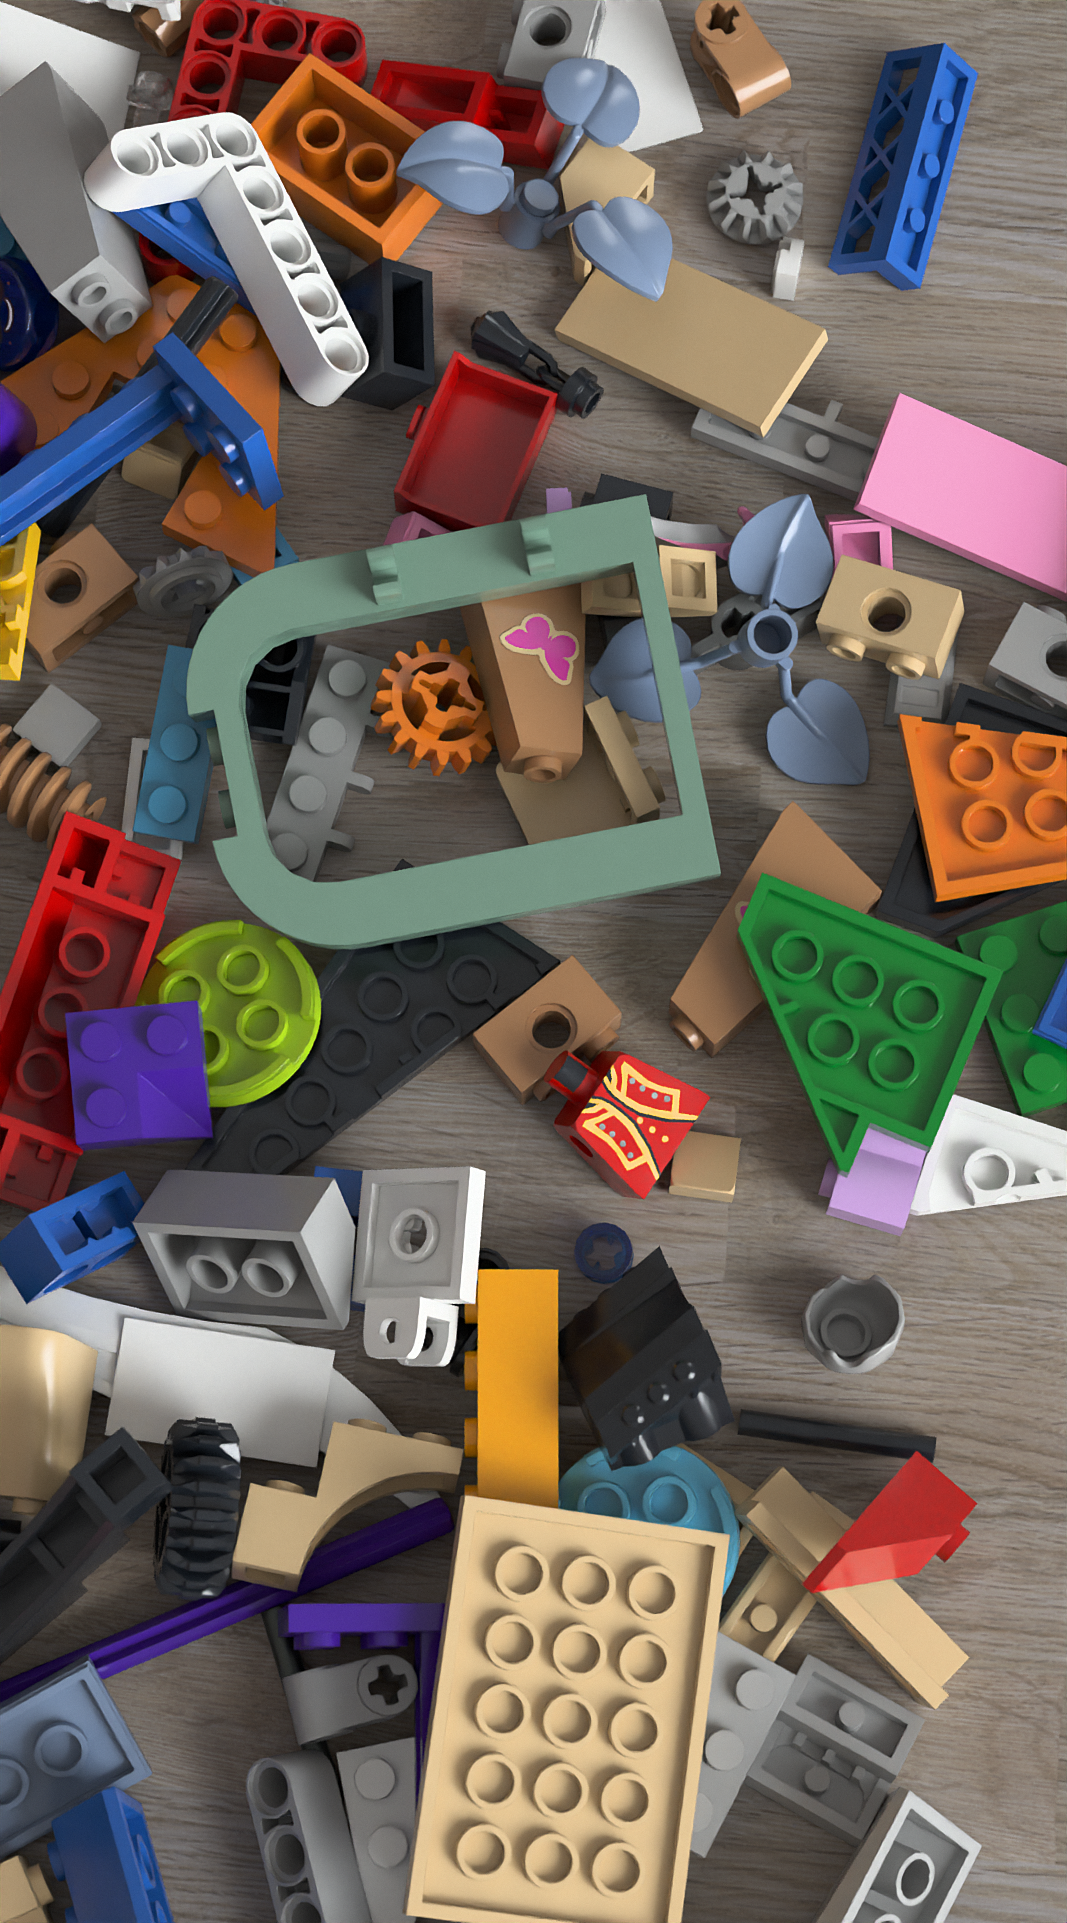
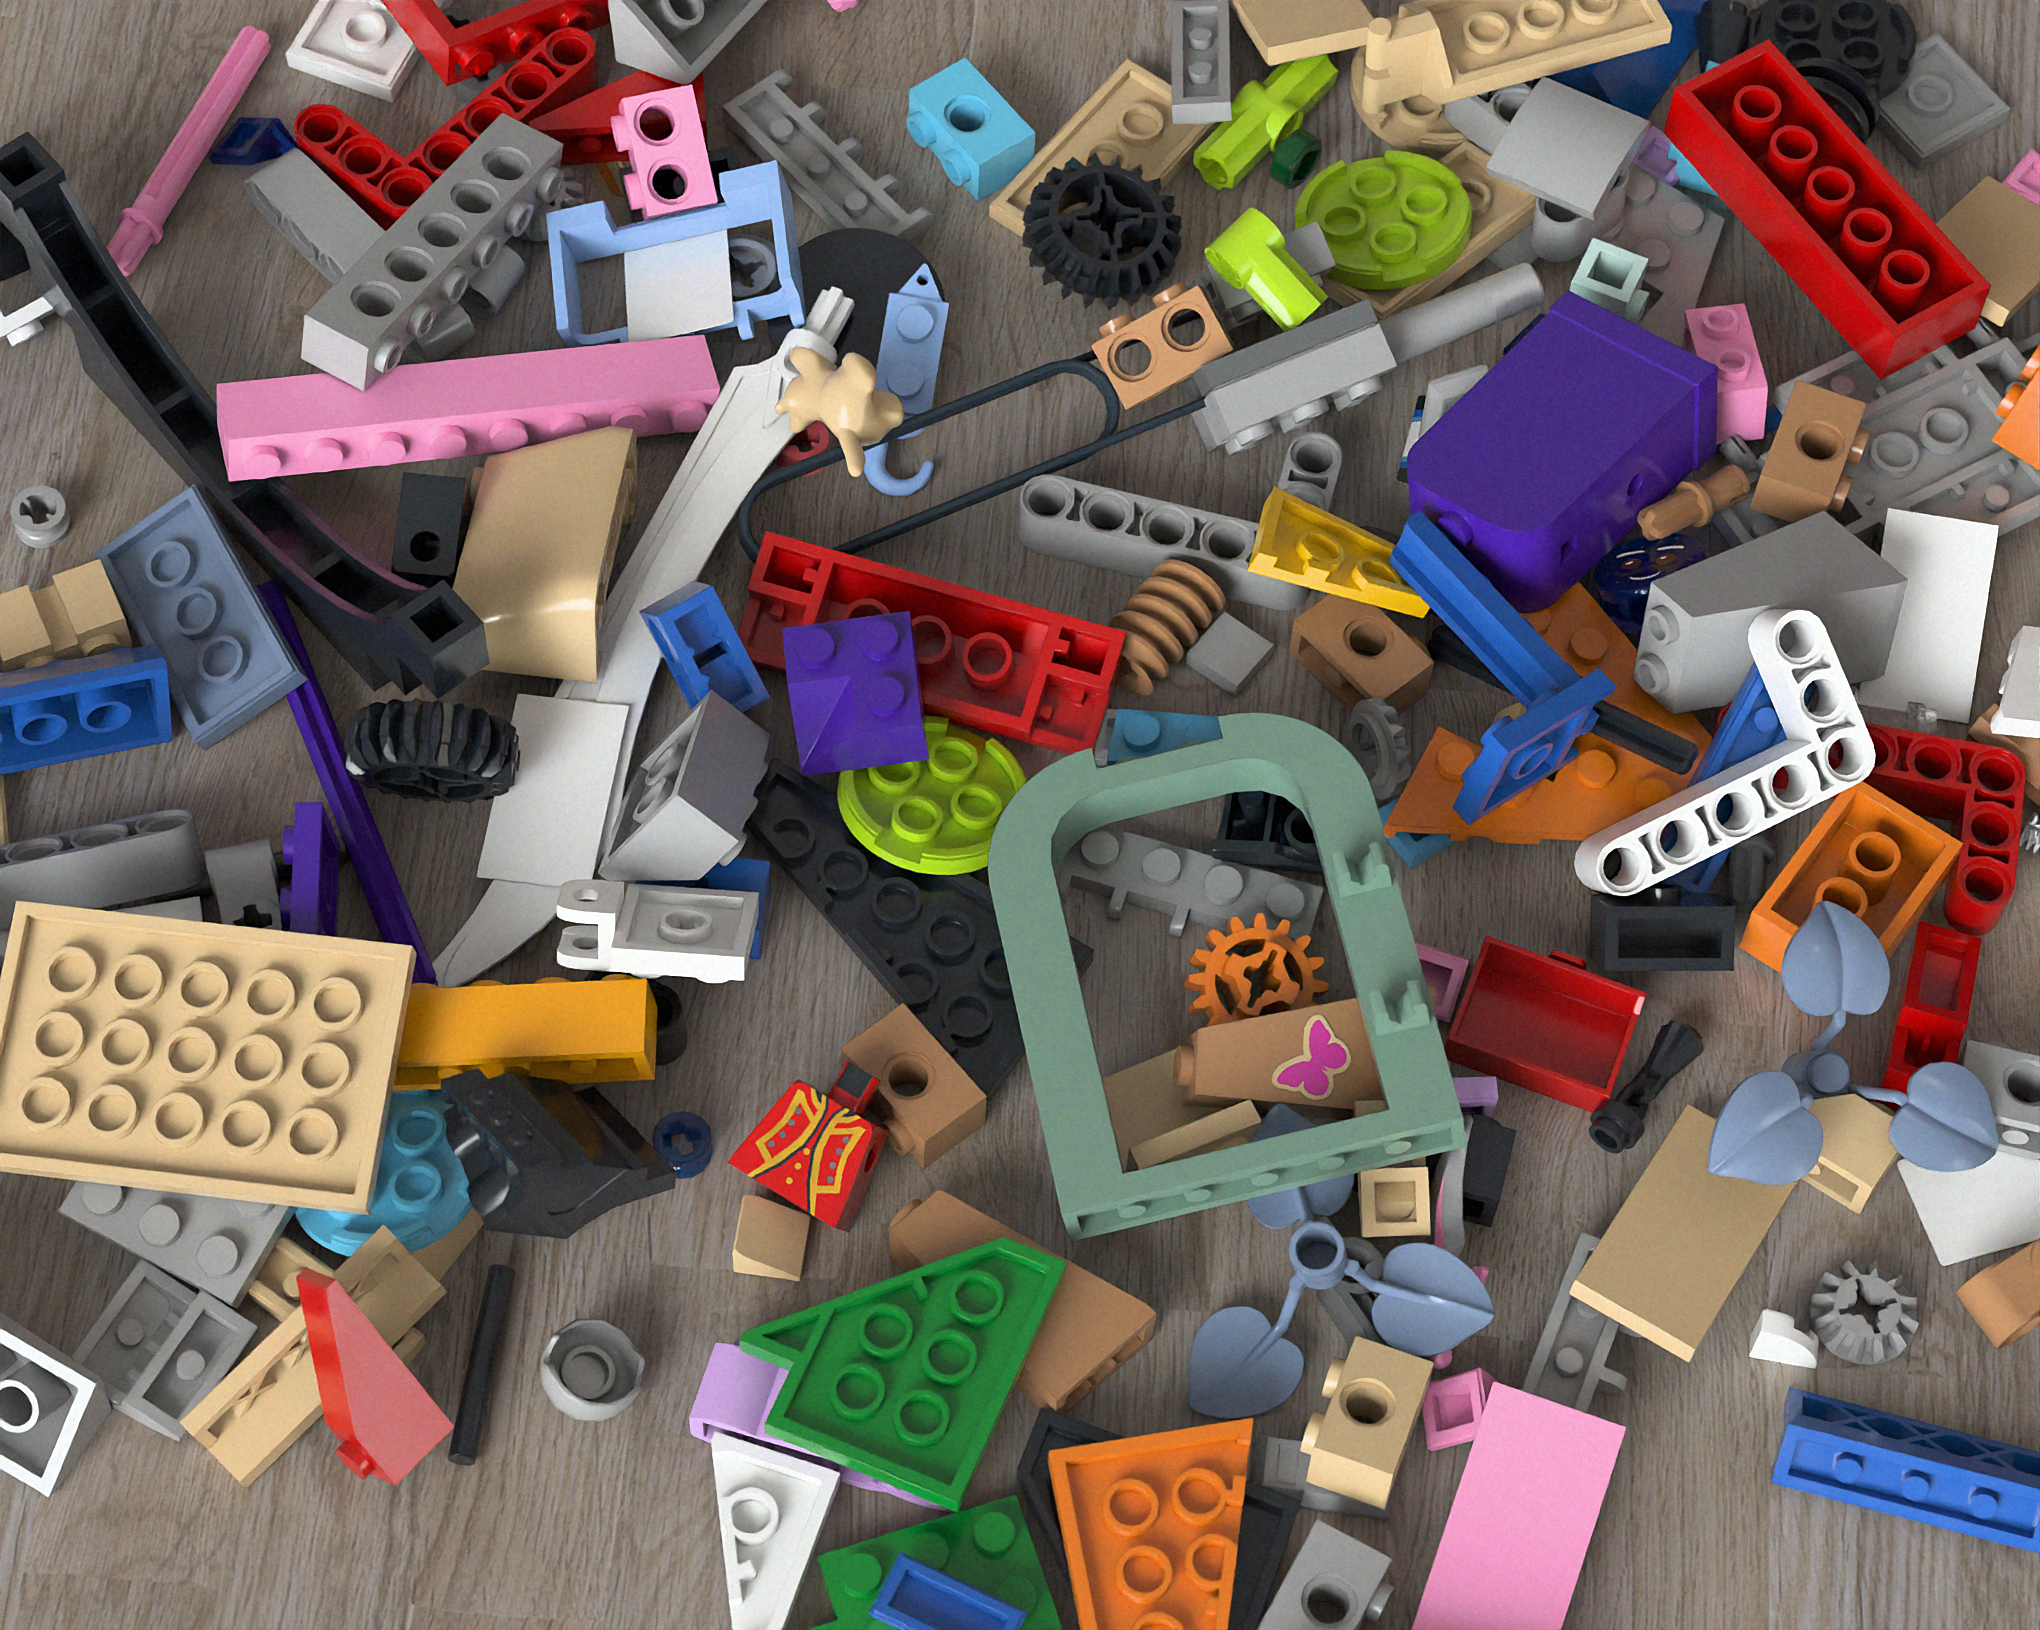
camera: 85 degrees right, 15 degrees down
(359, 1467) = (409, 830): tan arch -> none

